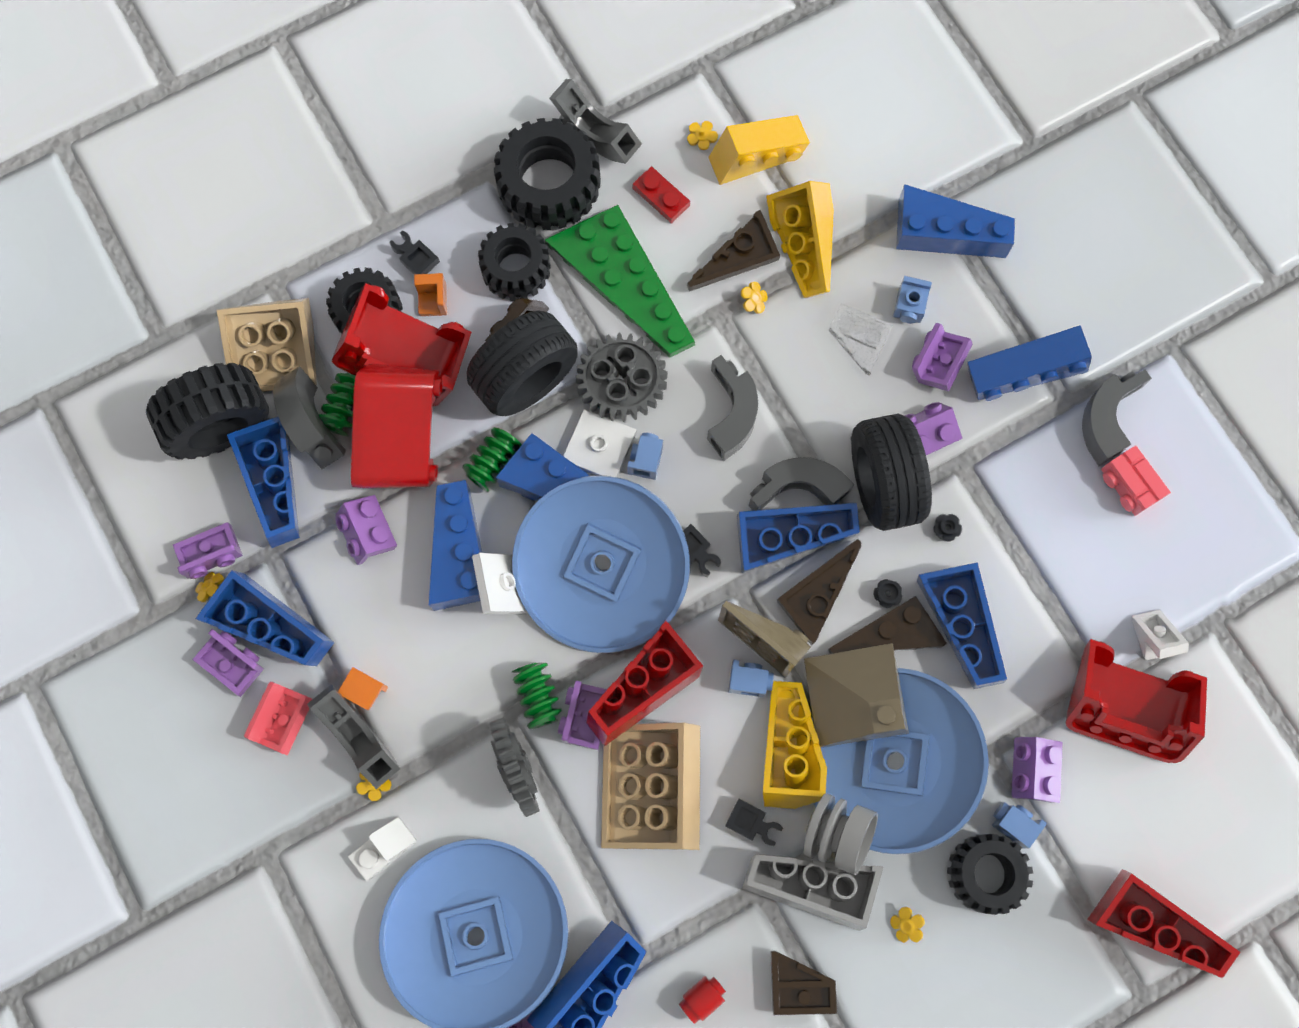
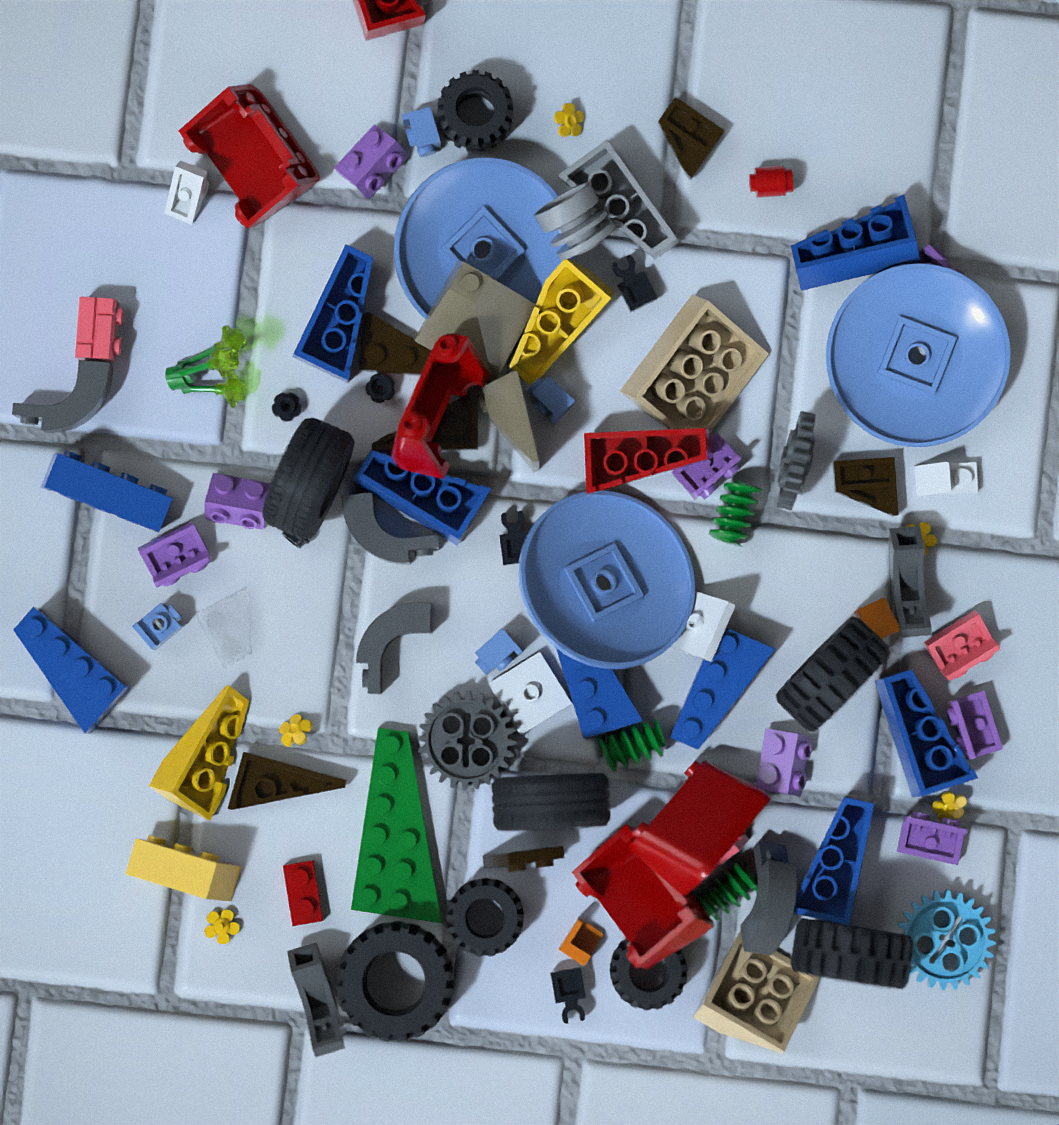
camera: 140 degrees left, 10 degrees up
(122, 485) = (969, 955): none -> medium azure gear
(364, 612) = (833, 674): none -> black tyre
(445, 798) = (868, 482): none -> dark brown wing
(851, 627) = (448, 371): none -> red windscreen
(1026, 513) = (224, 359): none -> clear neon green plant

